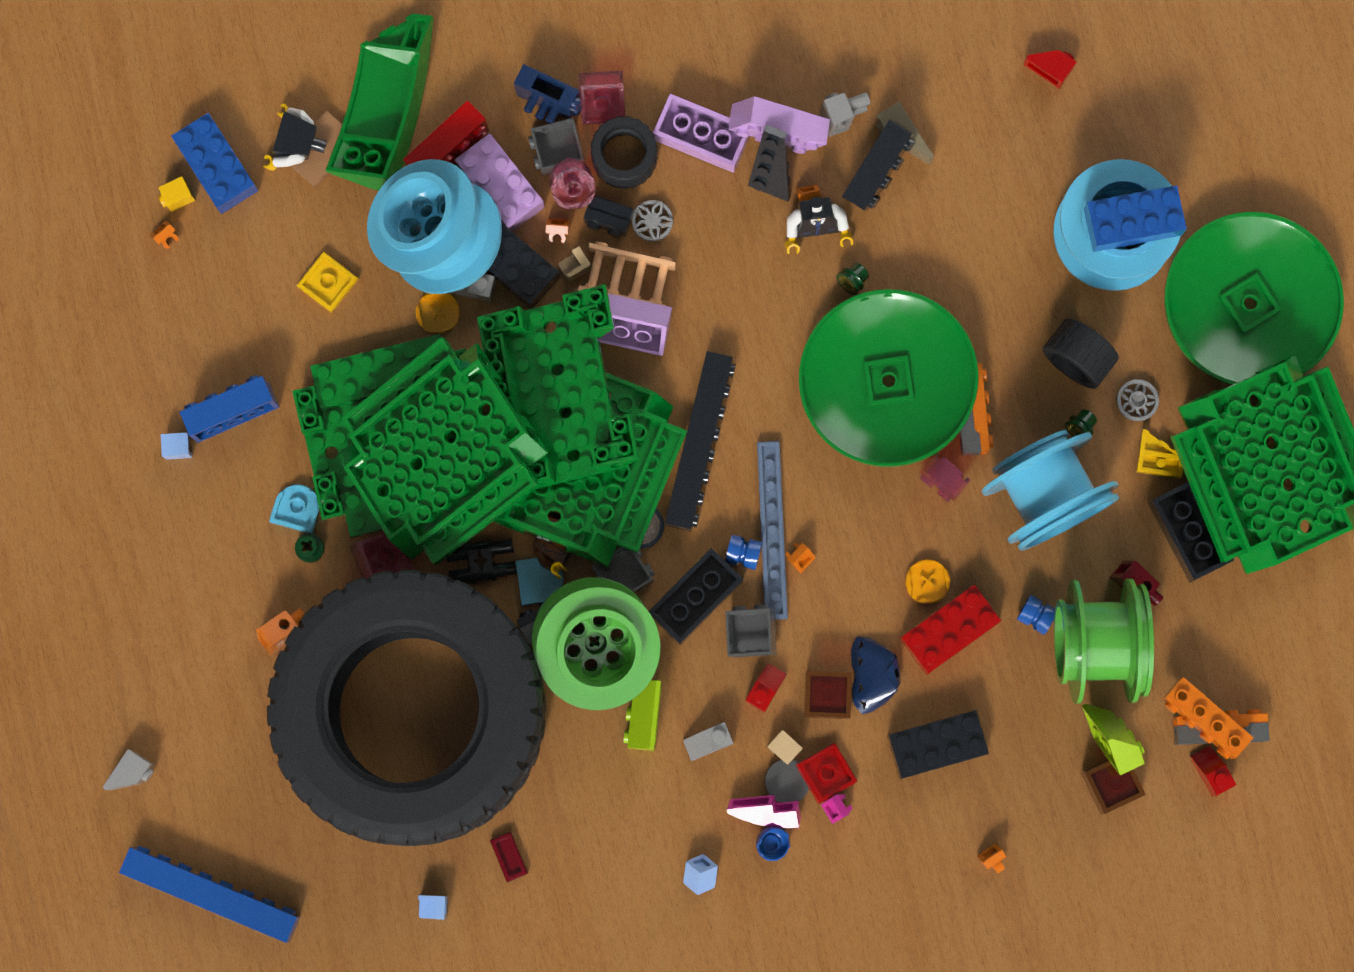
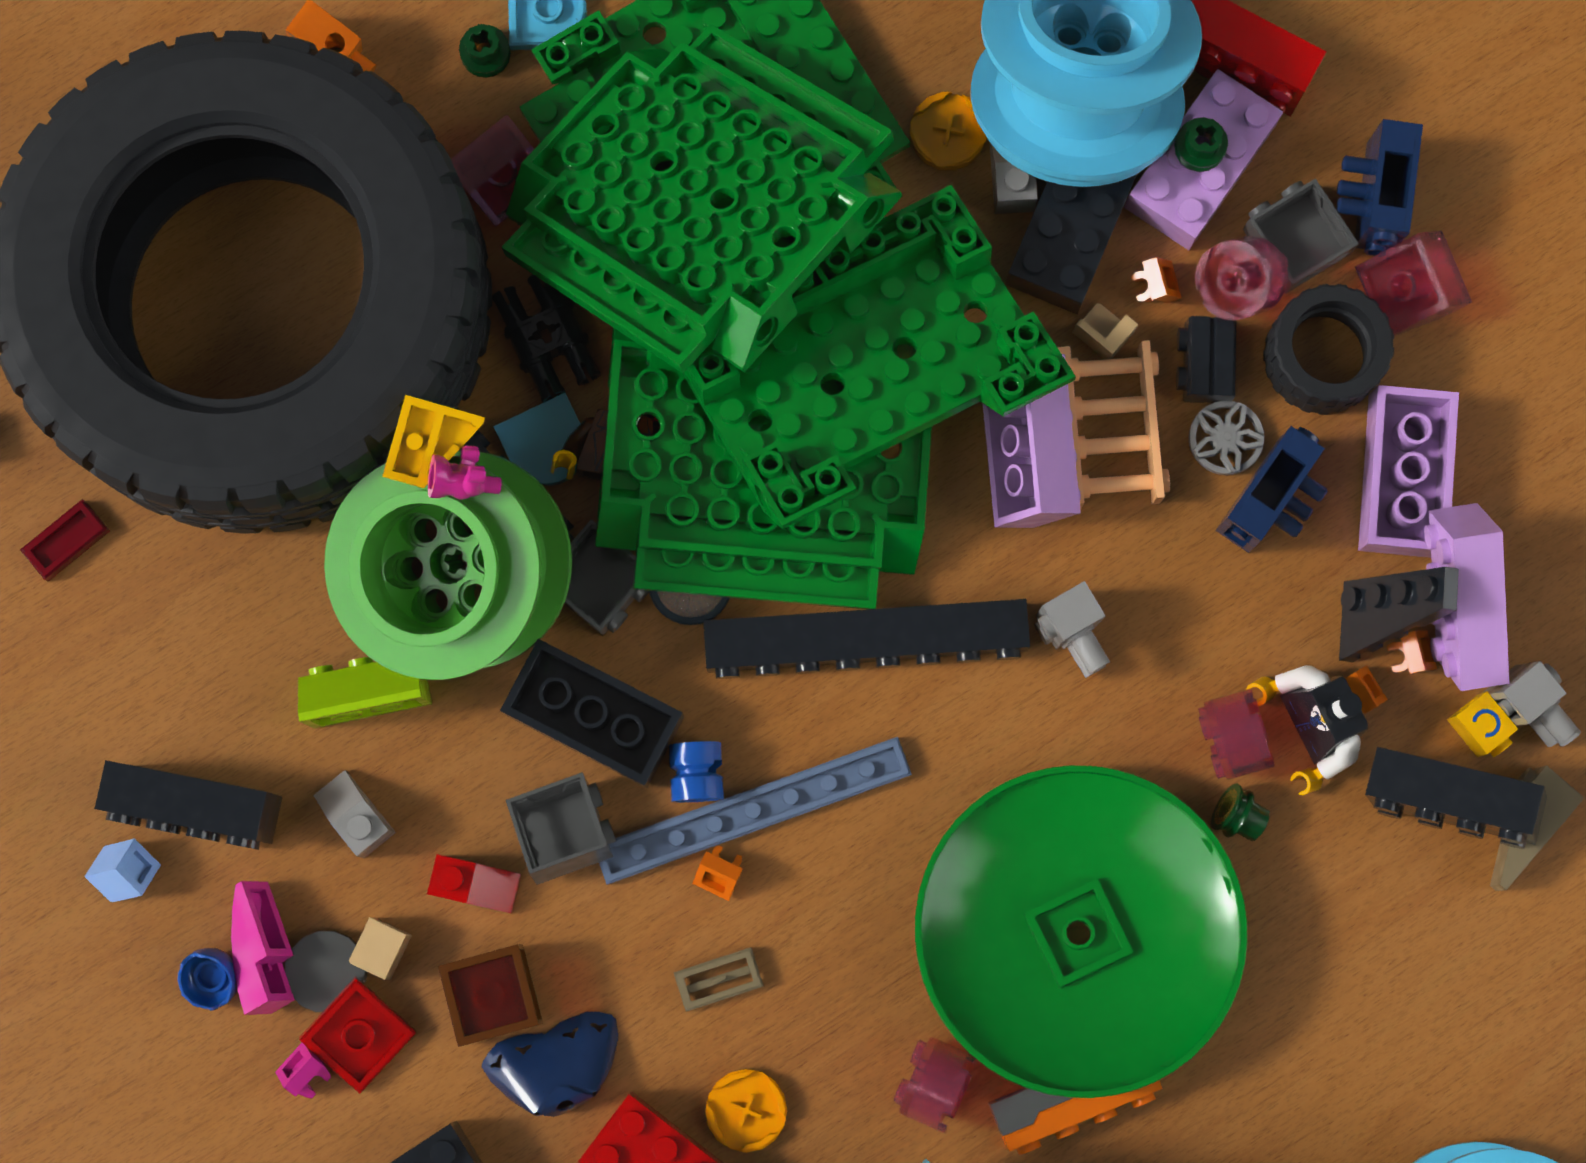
camera: 70 degrees right, 0 degrees up
(498, 188) = (1203, 156): none -> dark green piece
(533, 627) = (424, 431): none -> yellow wing
(560, 614) = (460, 479): none -> dark pink piece
(676, 825) = (178, 800): none -> black brick
(689, 205) = (1273, 490): none -> dark blue piece
(726, 331) = (1069, 624): none -> light grey brick
(799, 161) = (1416, 651): none -> orange tile
(813, 265) = (1237, 734): none -> clear pink brick
(845, 140) = (1483, 725): none -> yellow brick
(855, 594) = (751, 968): none -> dark tan tile

